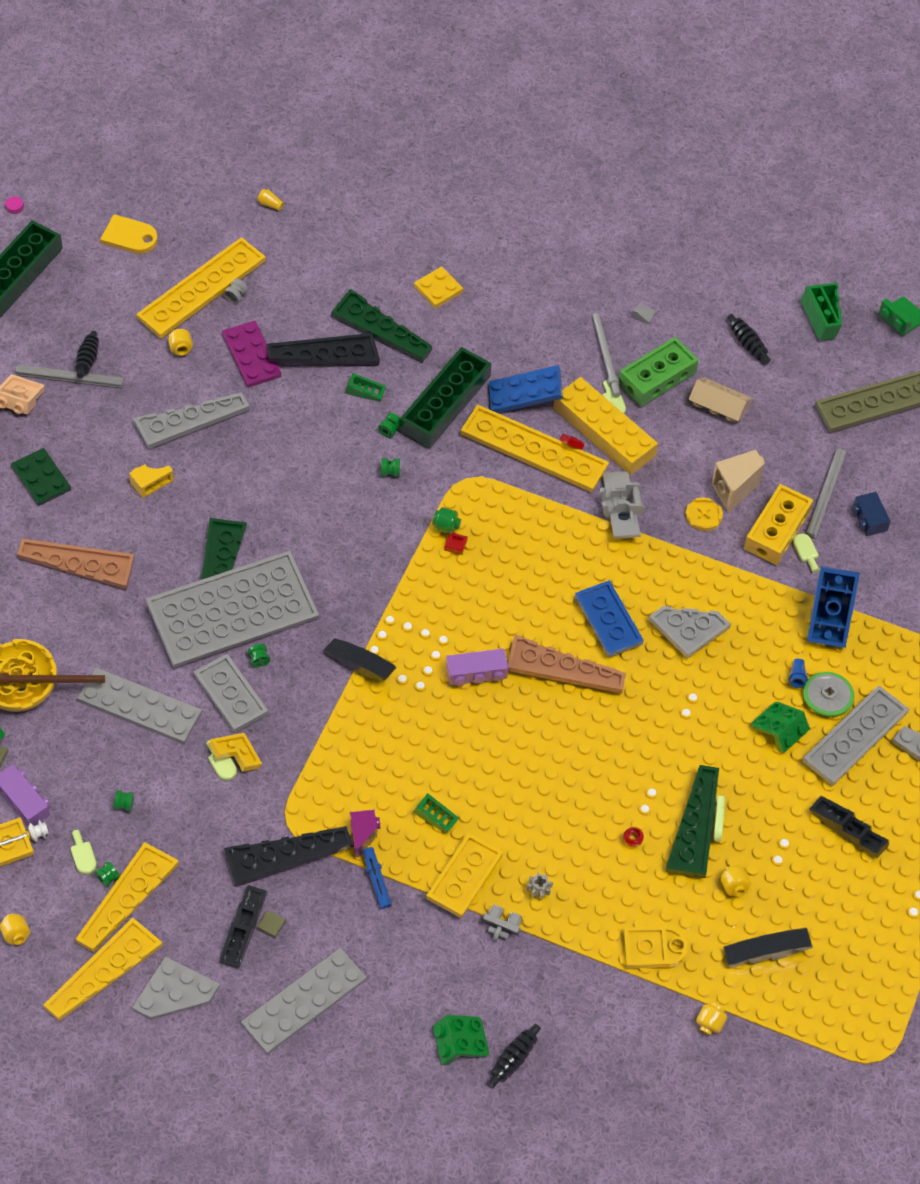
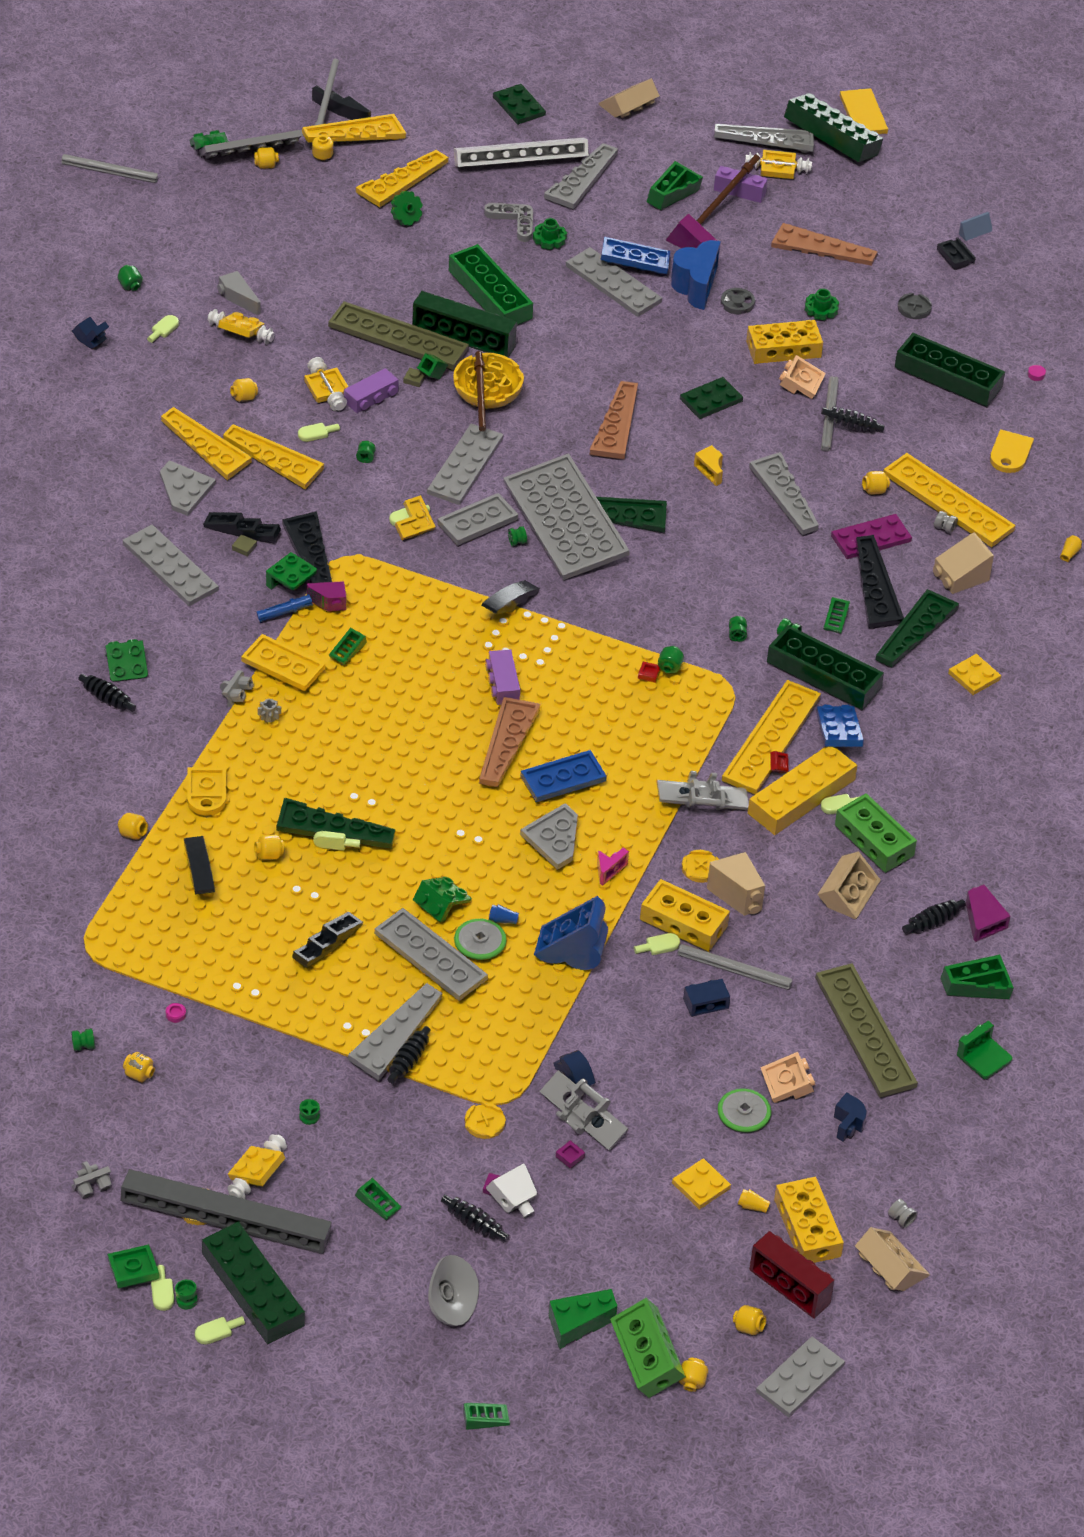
camera: 90 degrees right, 10 degrees down
(107, 874) = (294, 442): green wheel -> none
(301, 278) = (964, 564): none -> tan slope
(328, 870) = (289, 571): none -> green bracket
(613, 380) = (903, 797): light grey bar -> none
(633, 831) = (320, 780): red plate -> none
(643, 313) = (961, 834): light grey slope -> none
(727, 582) = (611, 865): none -> dark pink slope
(742, 301) = (985, 913): none -> magenta slope

